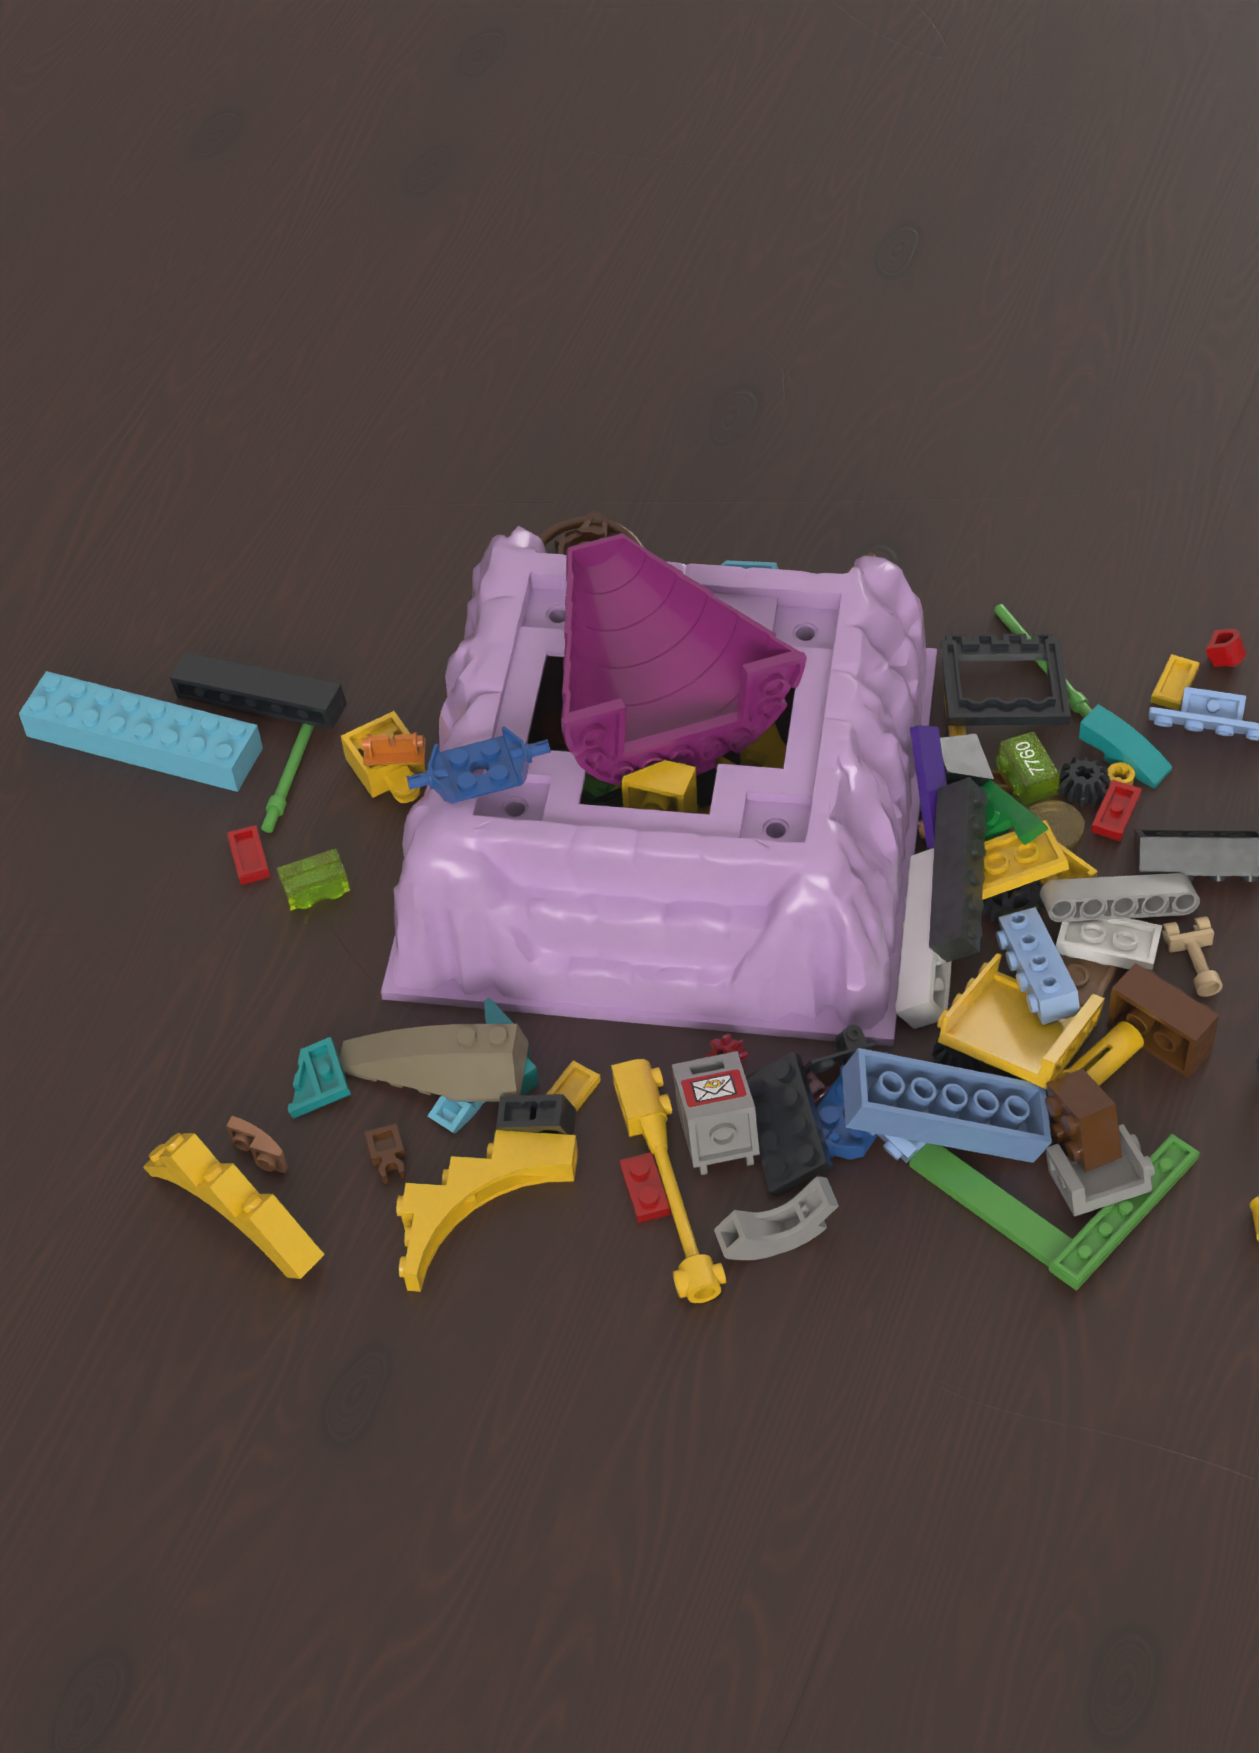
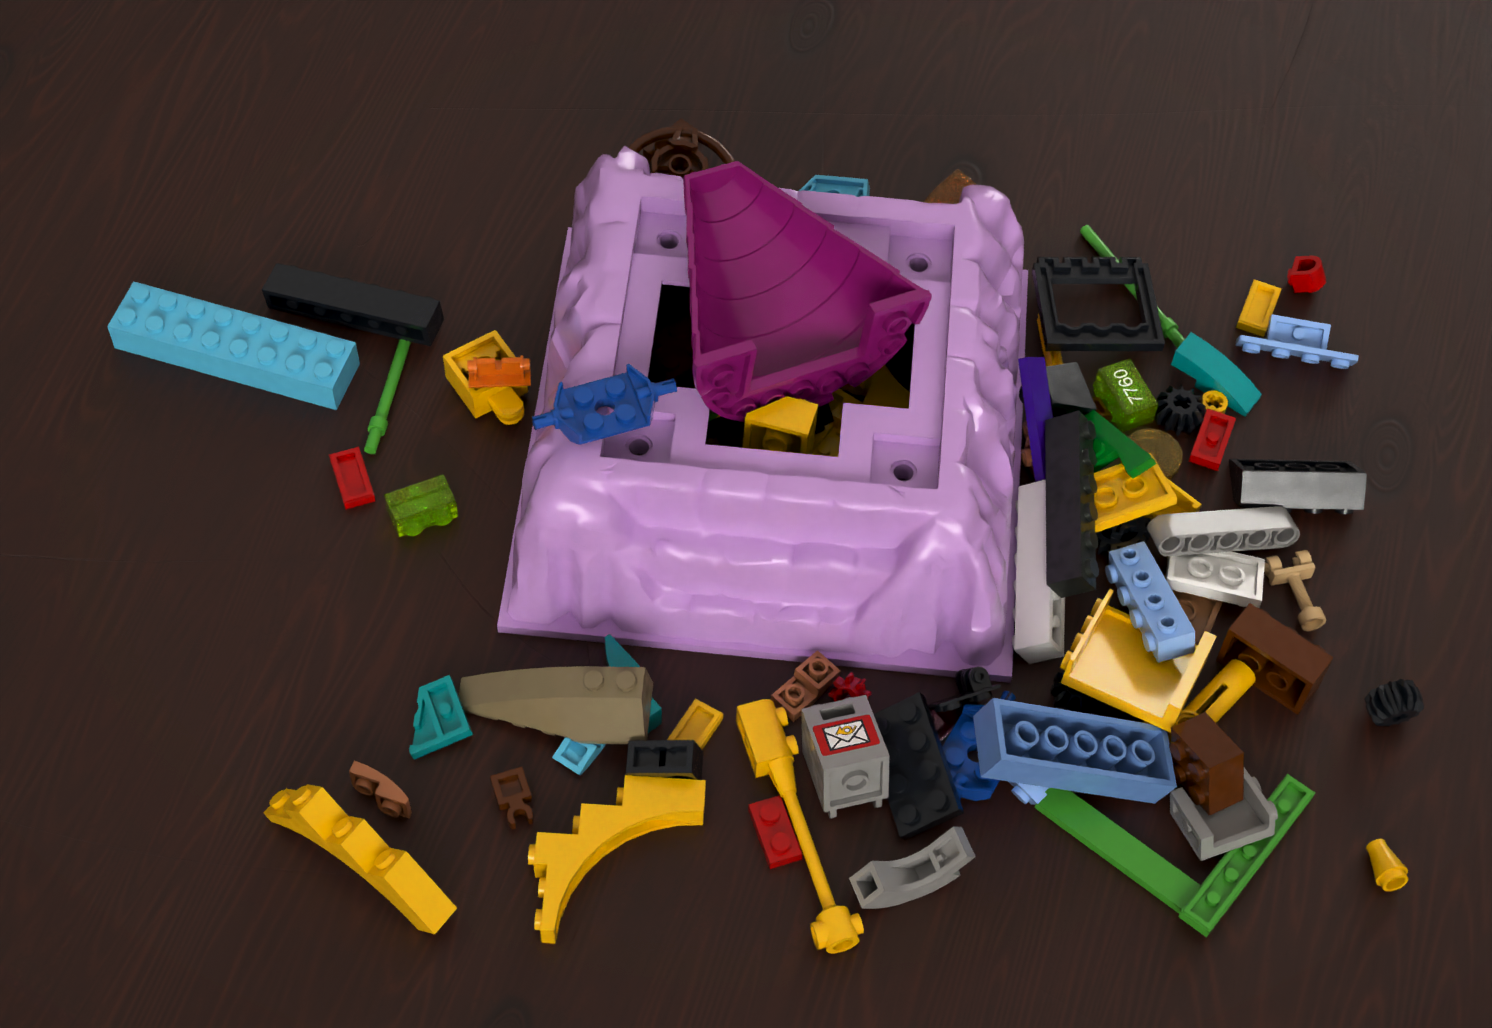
camera: 10 degrees left, 5 degrees up
(688, 1043) = (806, 685): none -> nougat slope

